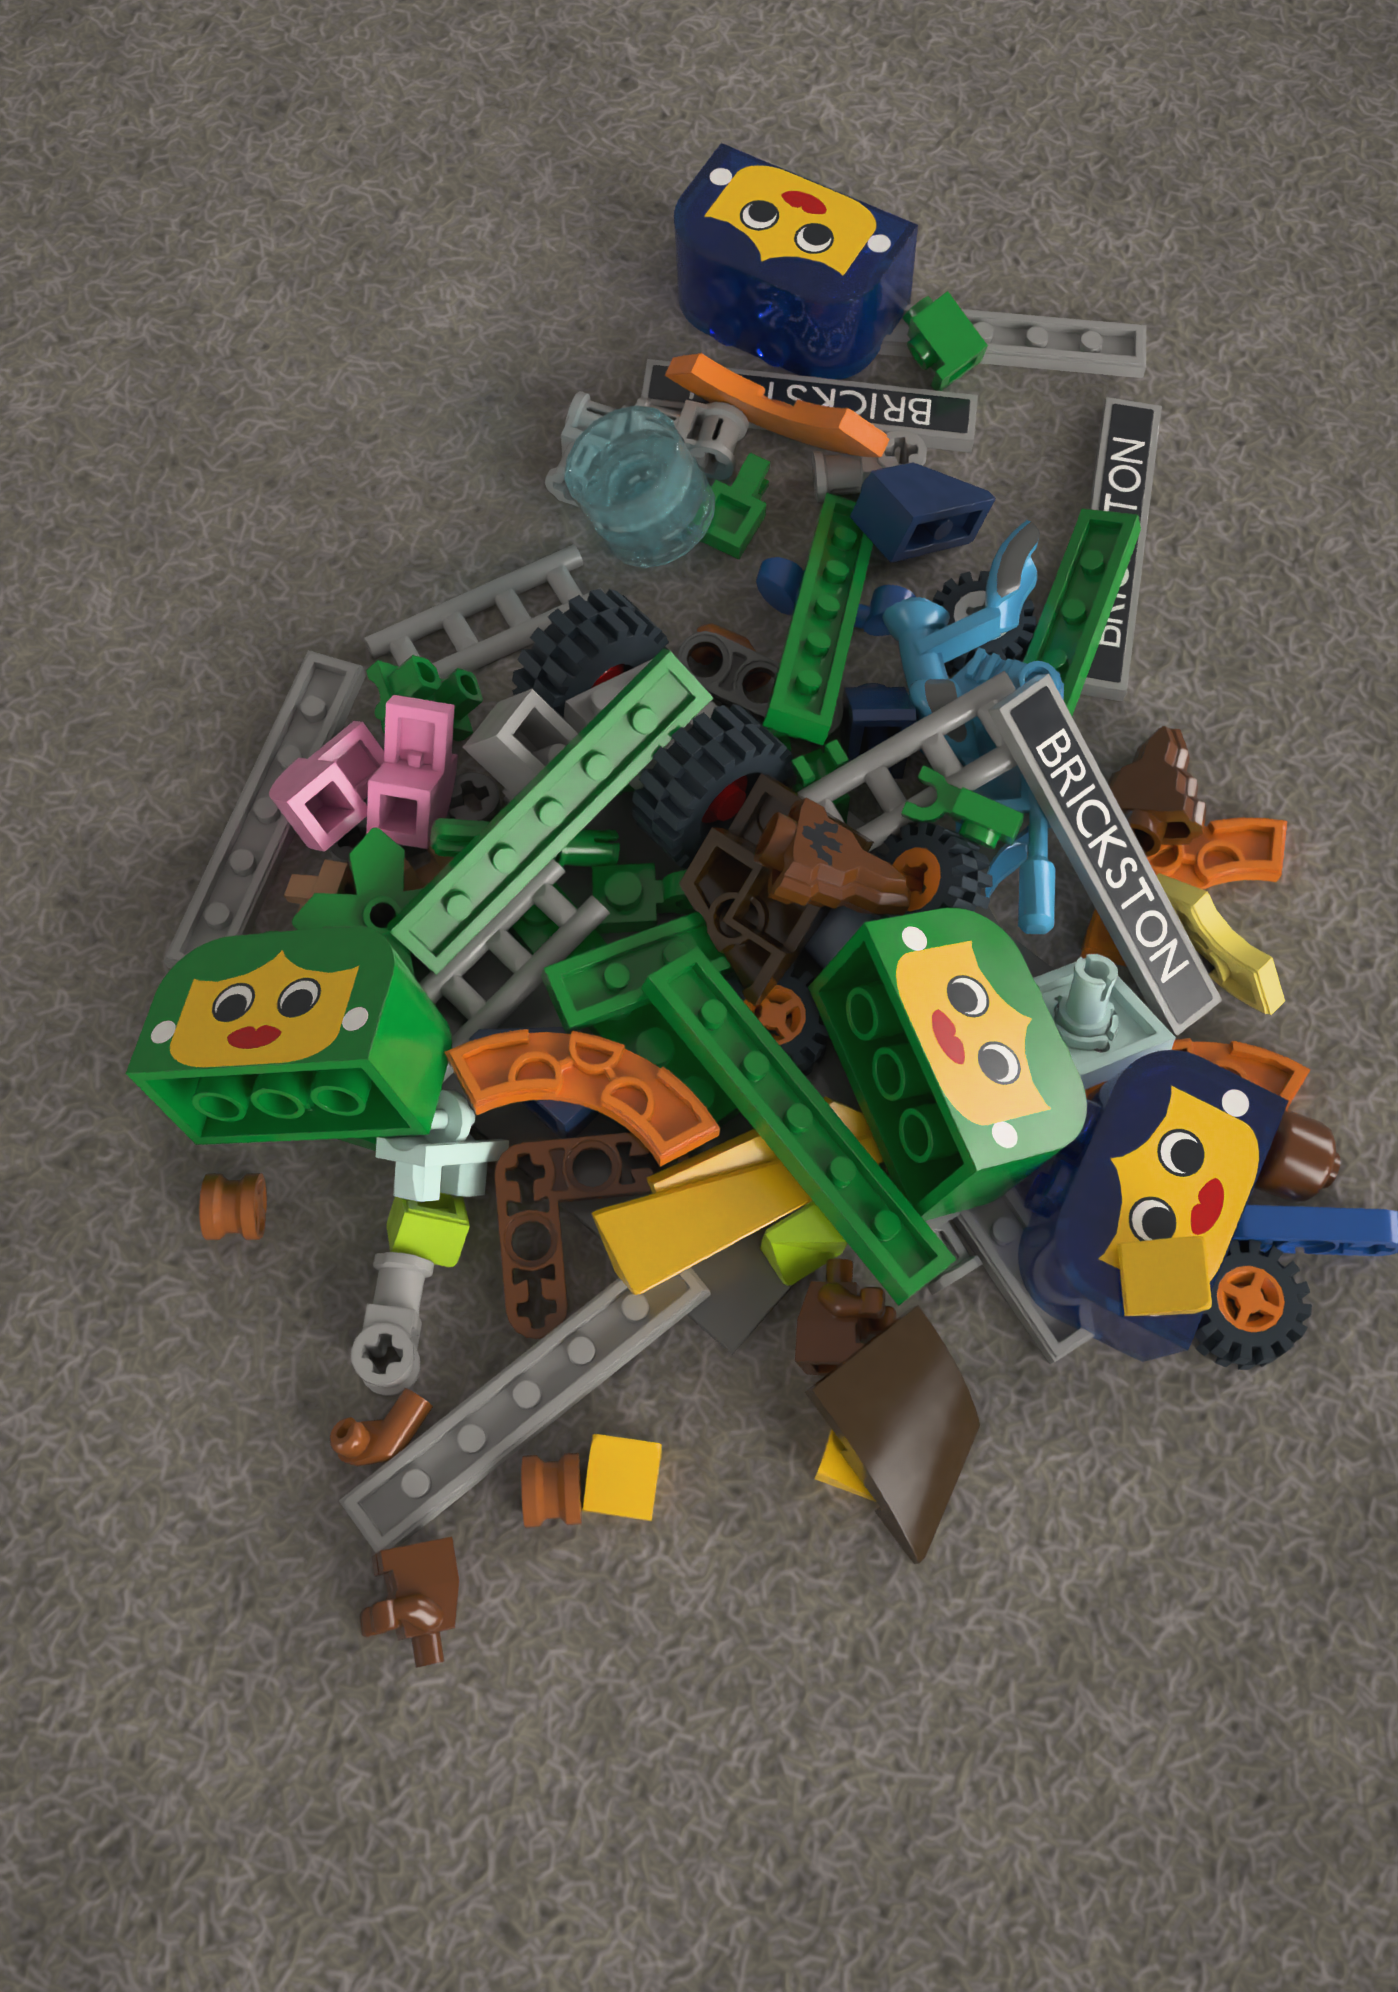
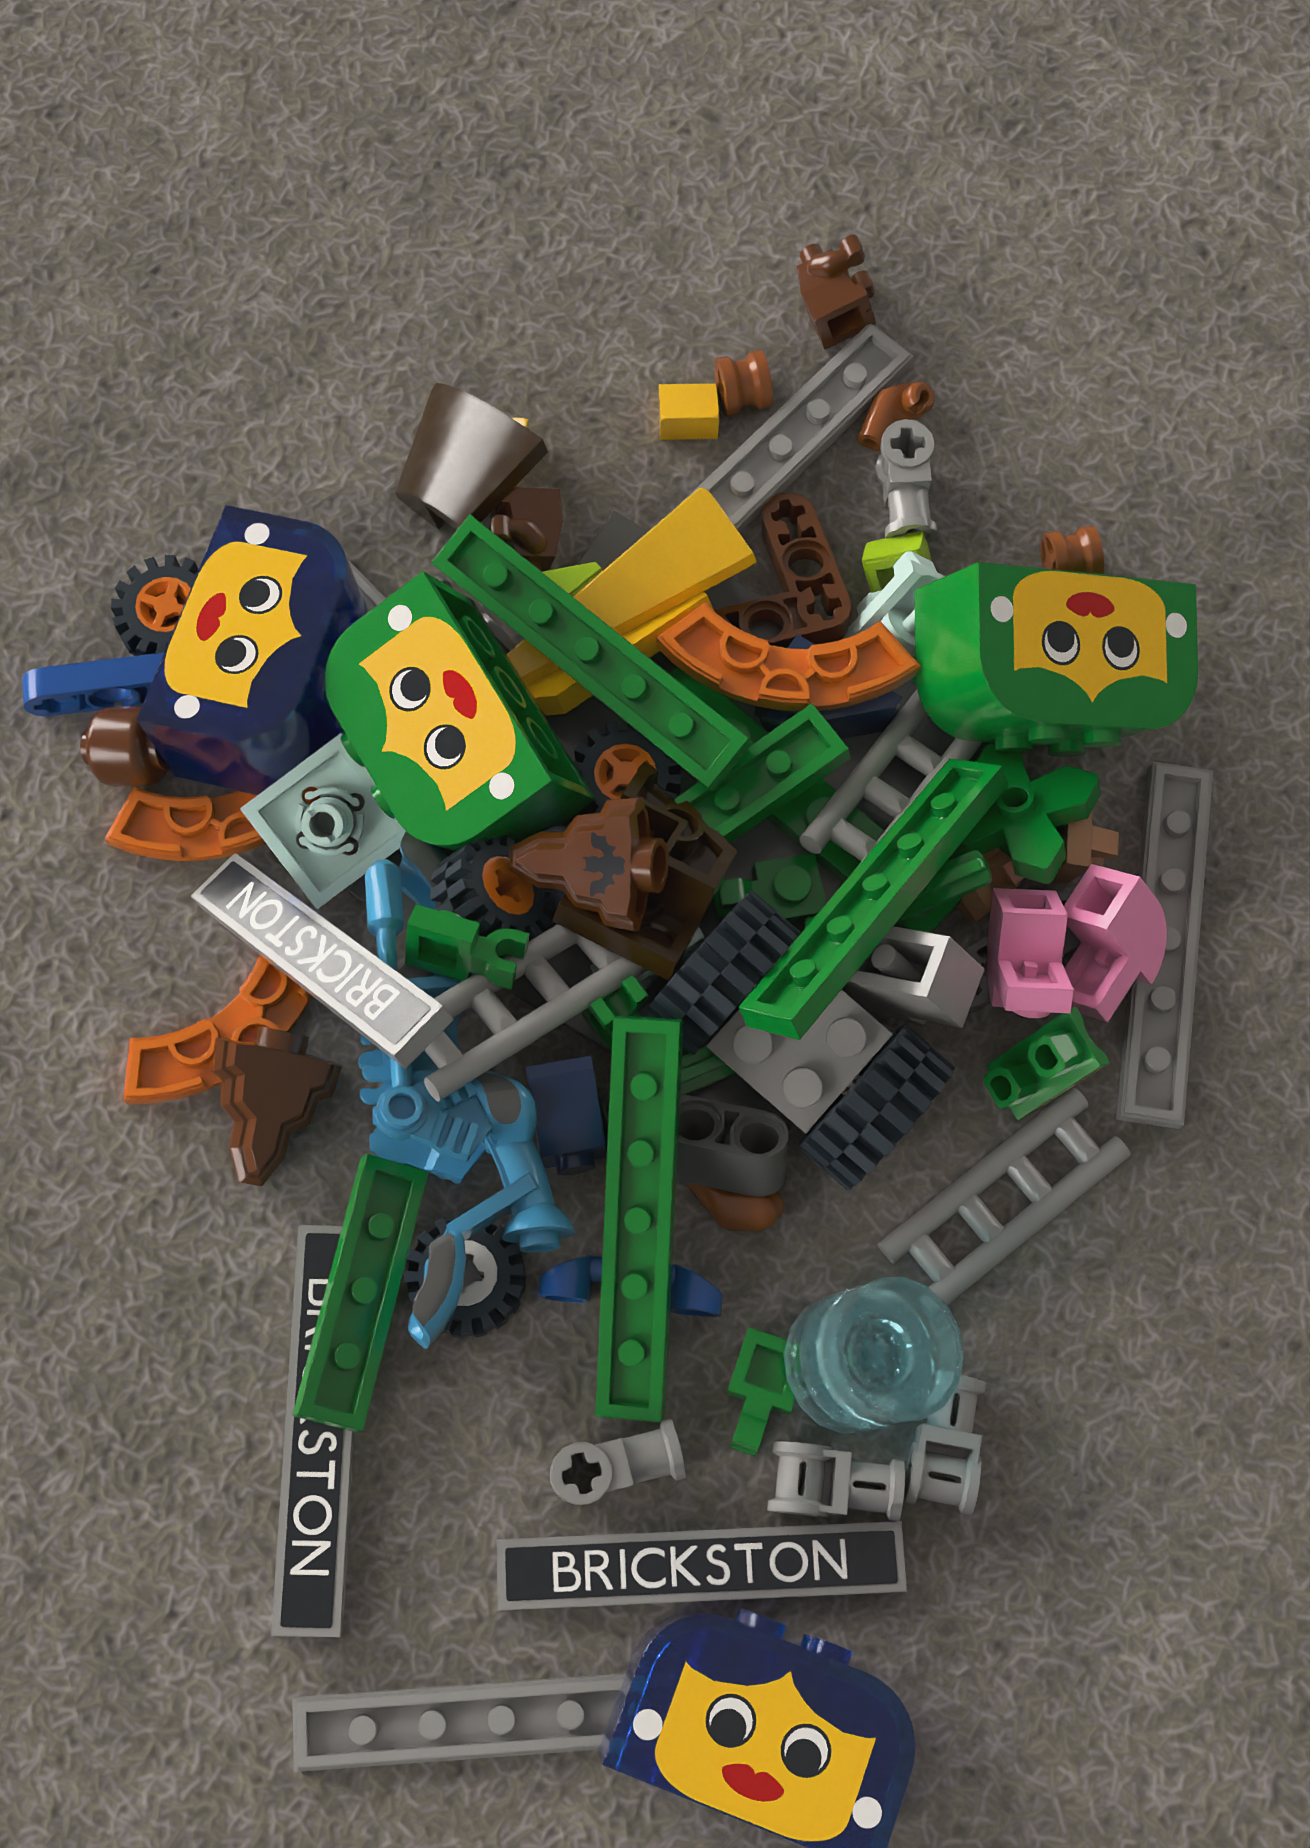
camera: 170 degrees right, 5 degrees up
(805, 422) = (736, 1510): orange tile -> none
(919, 511) = (555, 1397): dark blue slope -> none
(943, 339) = (548, 1665): green brick -> none
(1164, 1276) = (249, 540): yellow slope -> none
(1237, 964) = (201, 939): light yellow tile -> none

